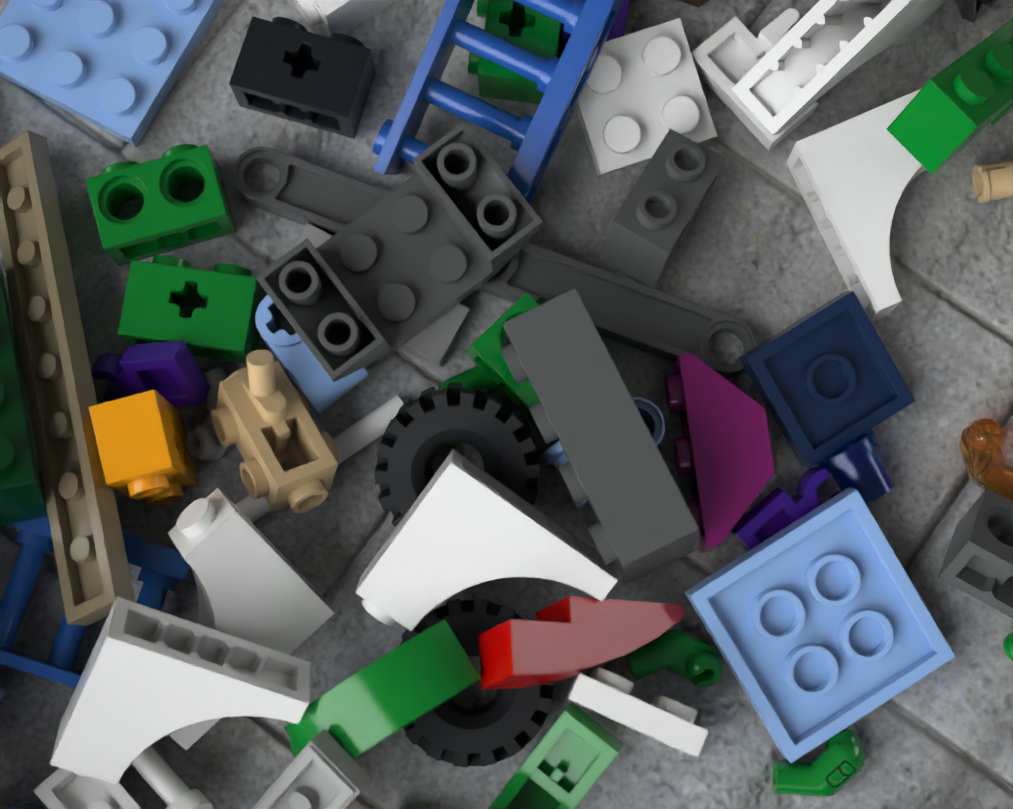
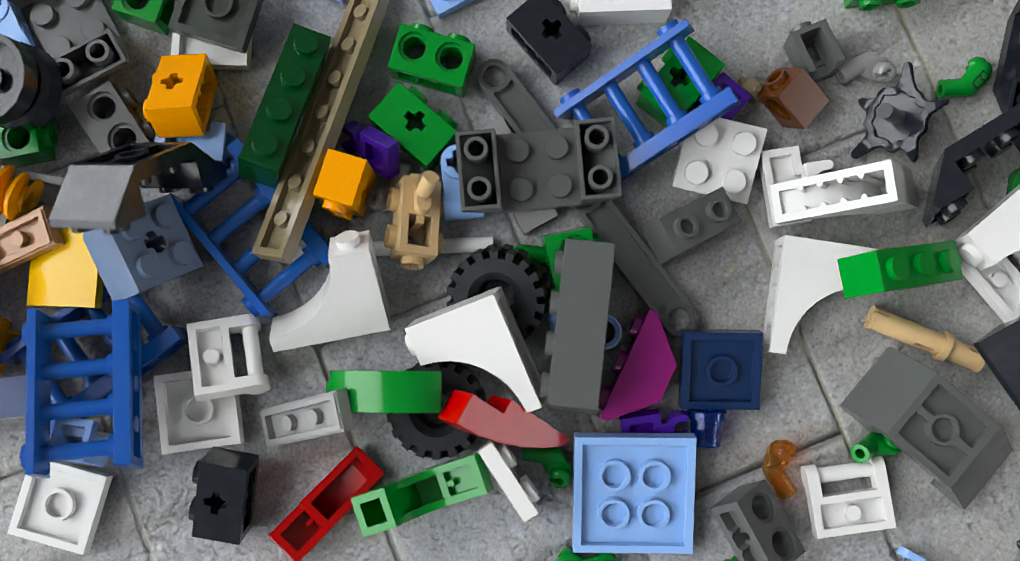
camera: 30 degrees right, 5 degrees up
(162, 675) = (282, 310): white arch -> none

